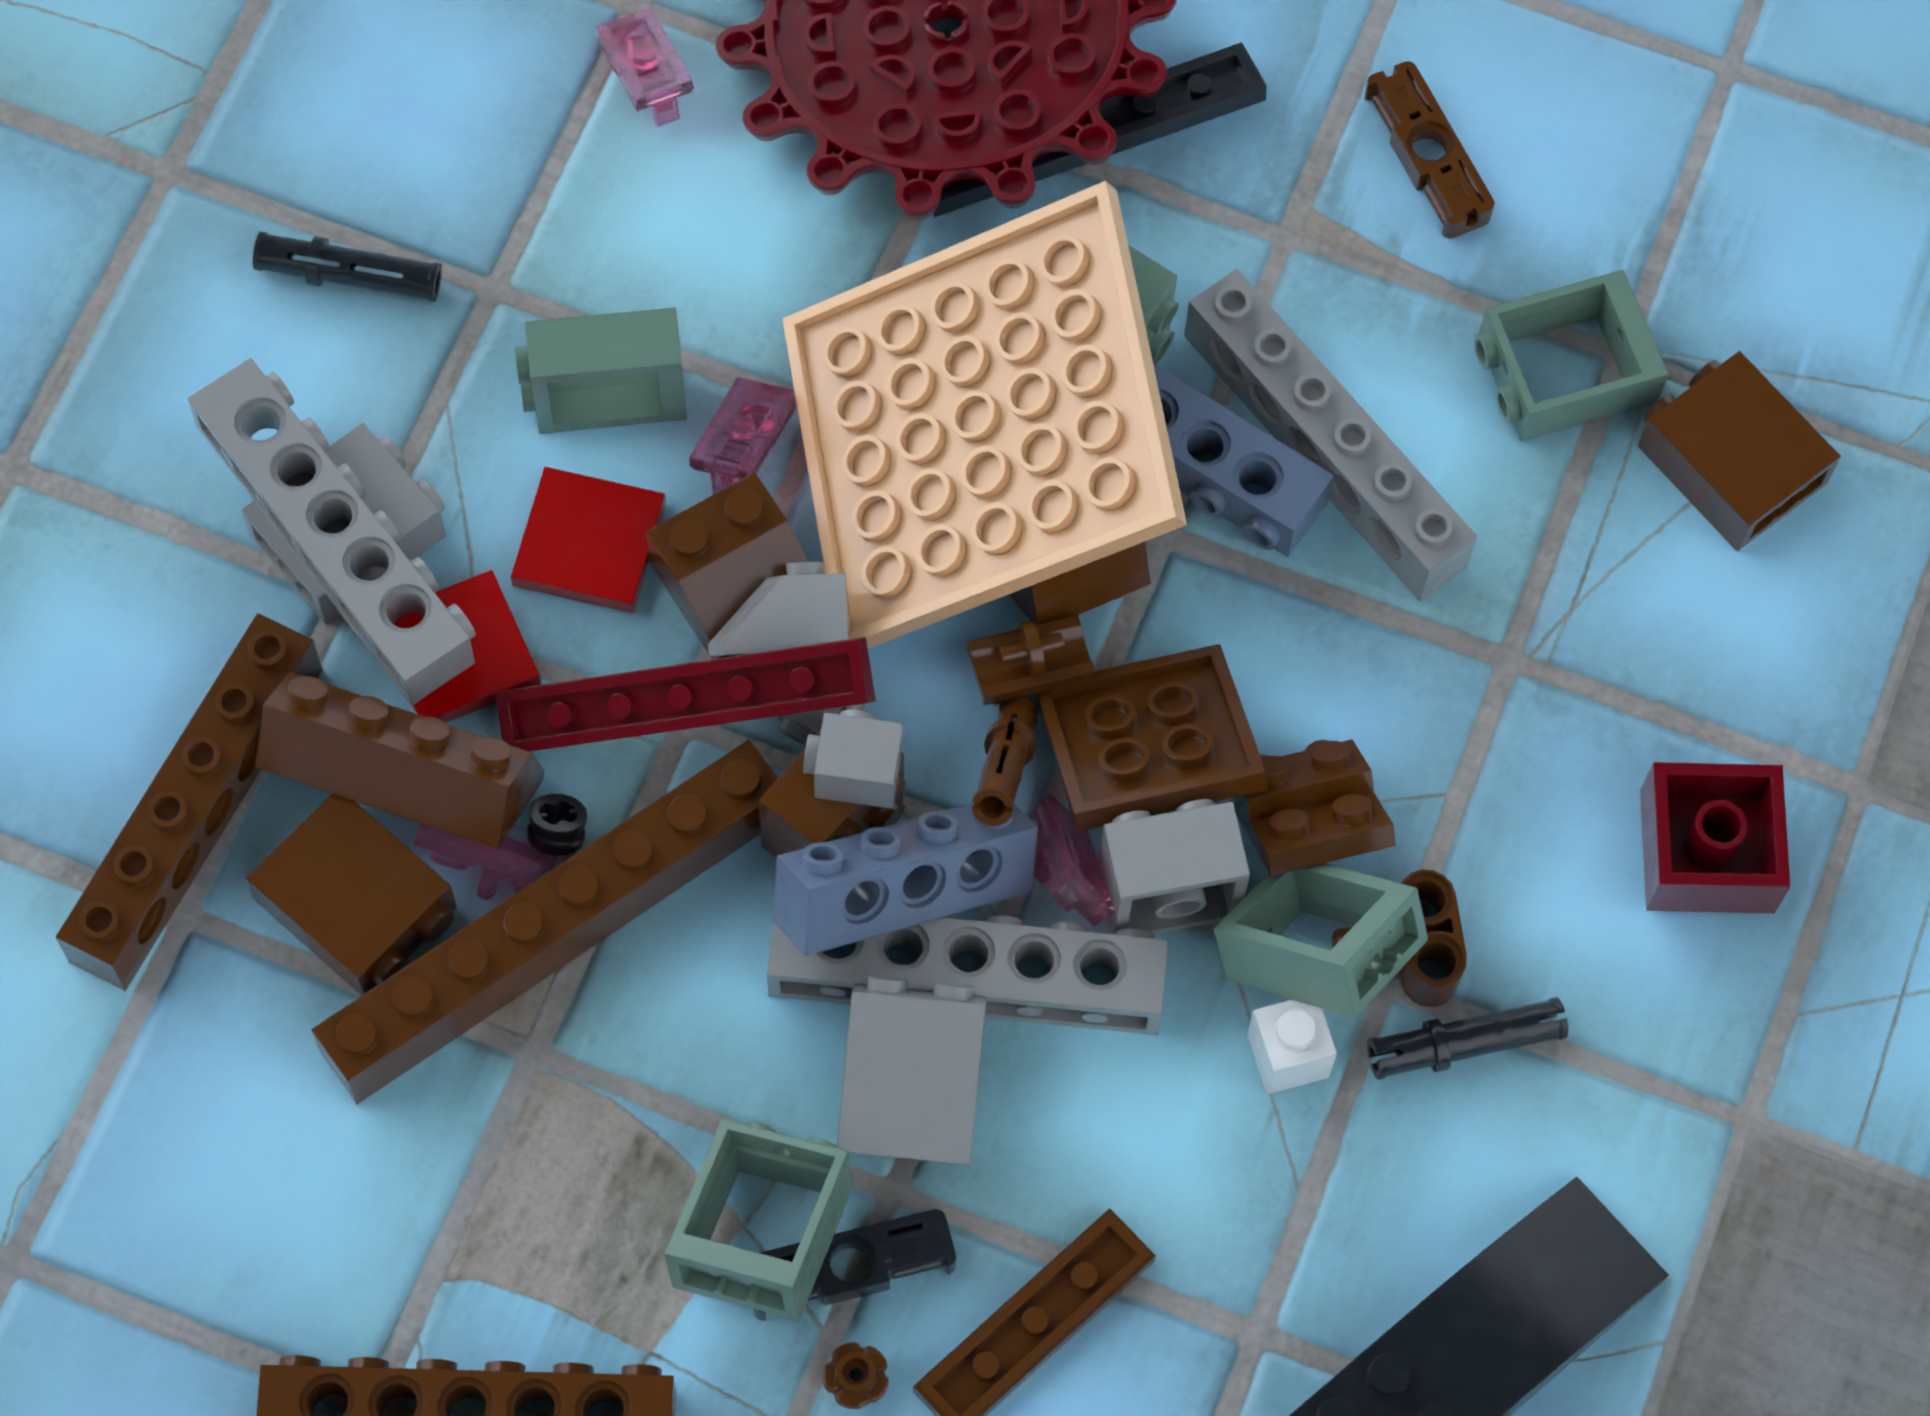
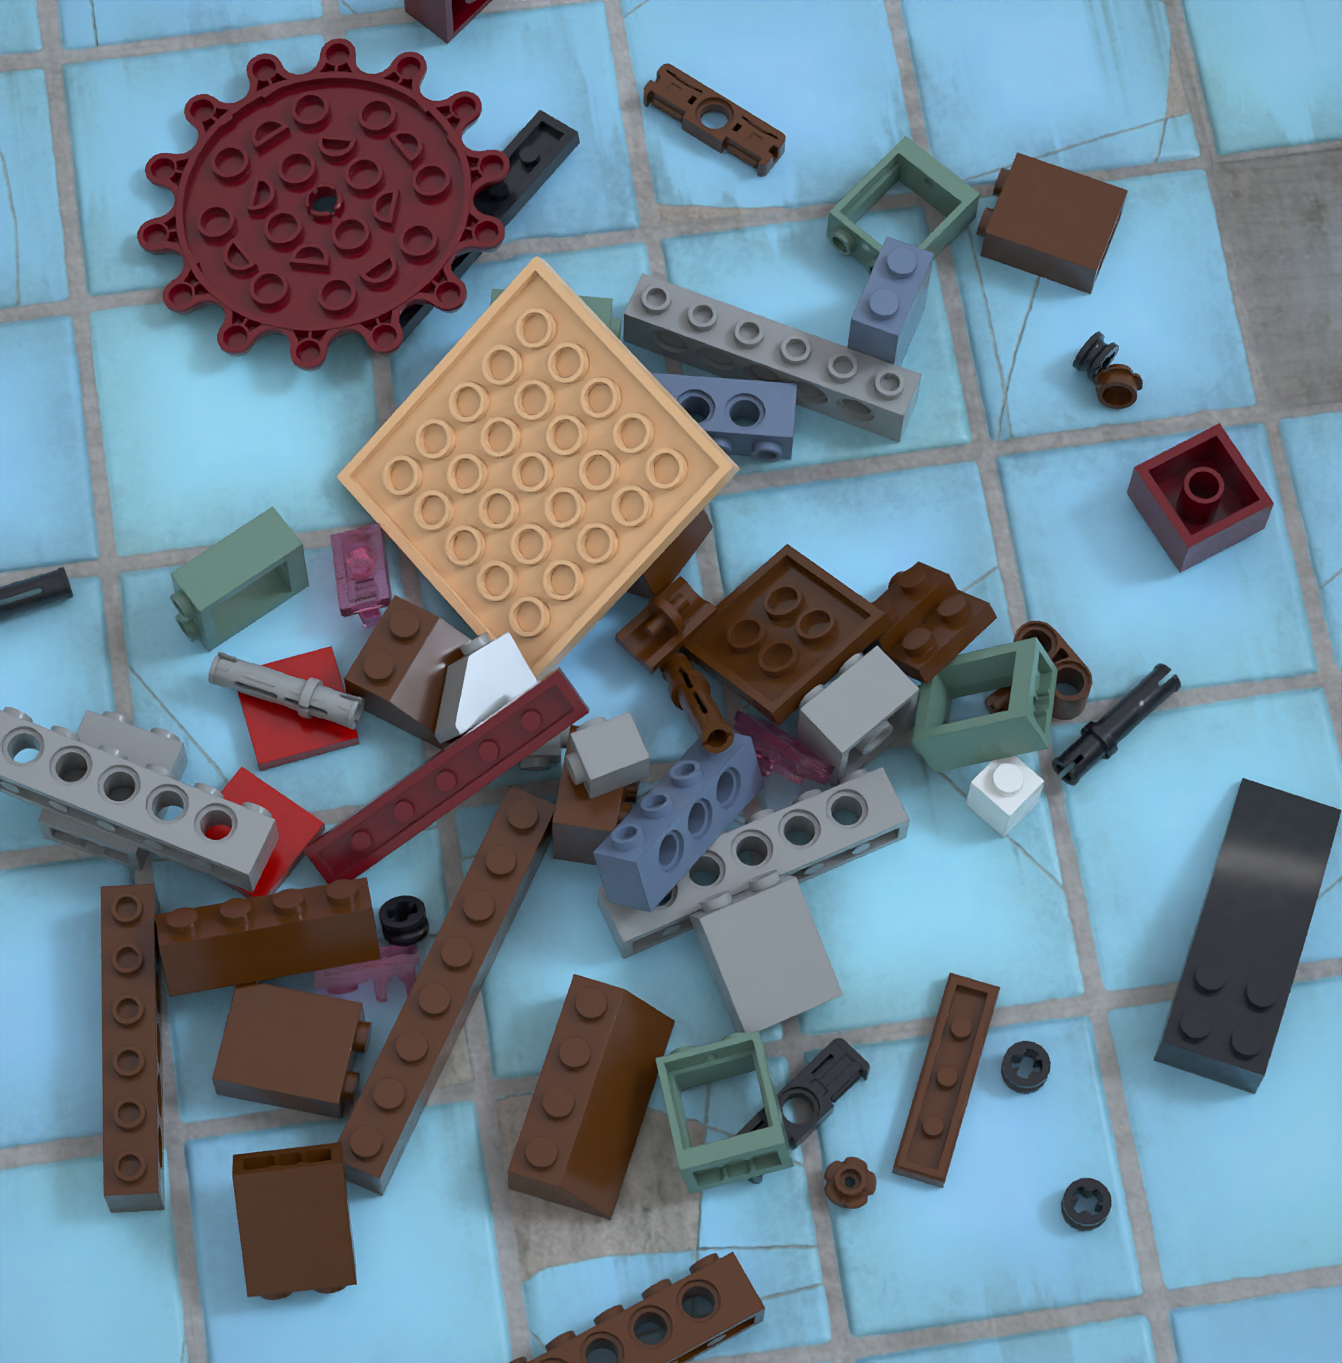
camera: 30 degrees left, 0 degrees up
(233, 1075) = (294, 1220): none -> reddish brown brick
(599, 531) = (305, 696): none -> light grey pin
(631, 1123) = (590, 1098): none -> reddish brown slope
(646, 63) = (122, 342): clear pink plate -> none
(1130, 1339) = (1035, 1079): none -> black bush
(1488, 442) = (891, 302): none -> sand blue brick
(1696, 621) = (1095, 355): none -> black bush
(1701, 667) = (1117, 386): none -> reddish brown plate

